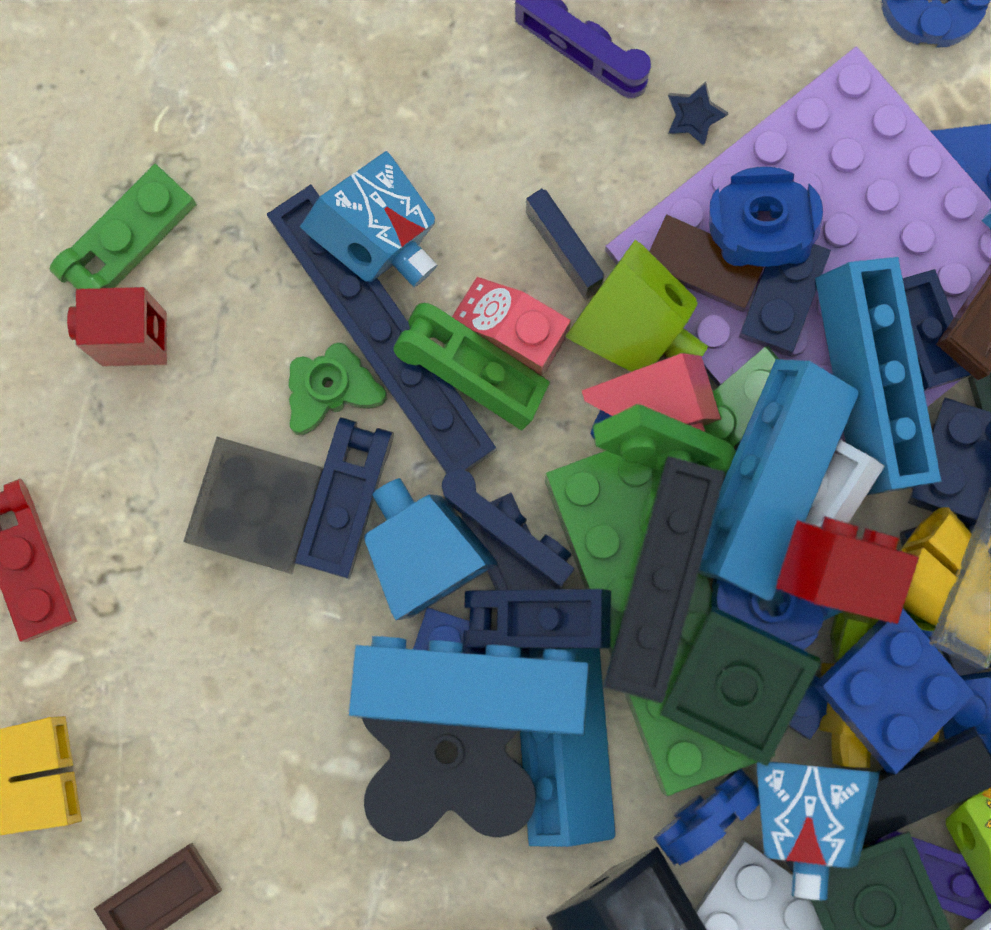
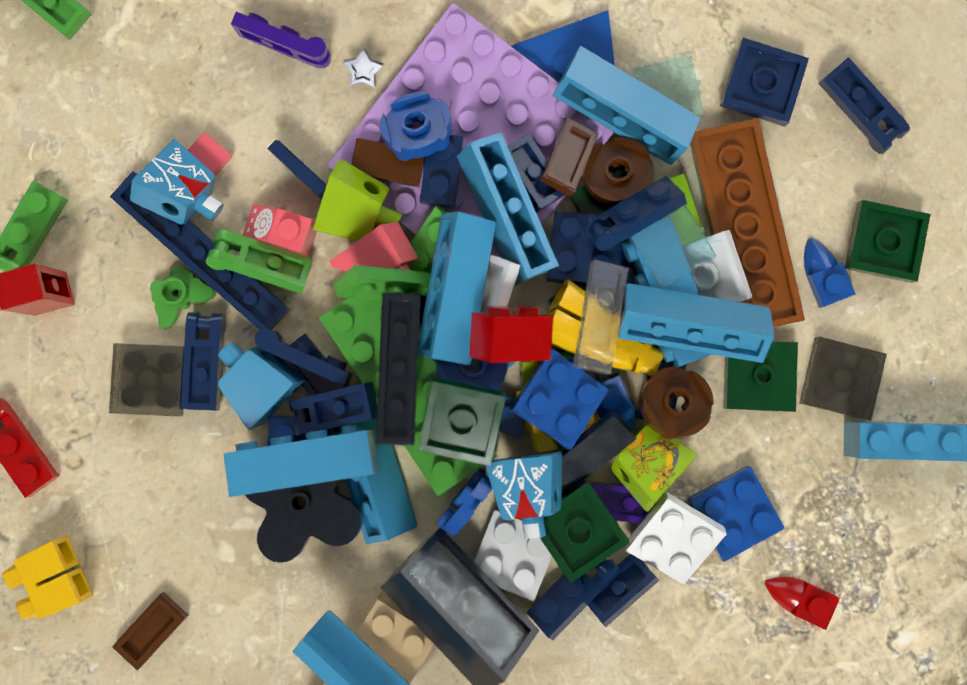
camera: 20 degrees left, 5 degrees up
(433, 183) = (210, 153): none -> coral tile

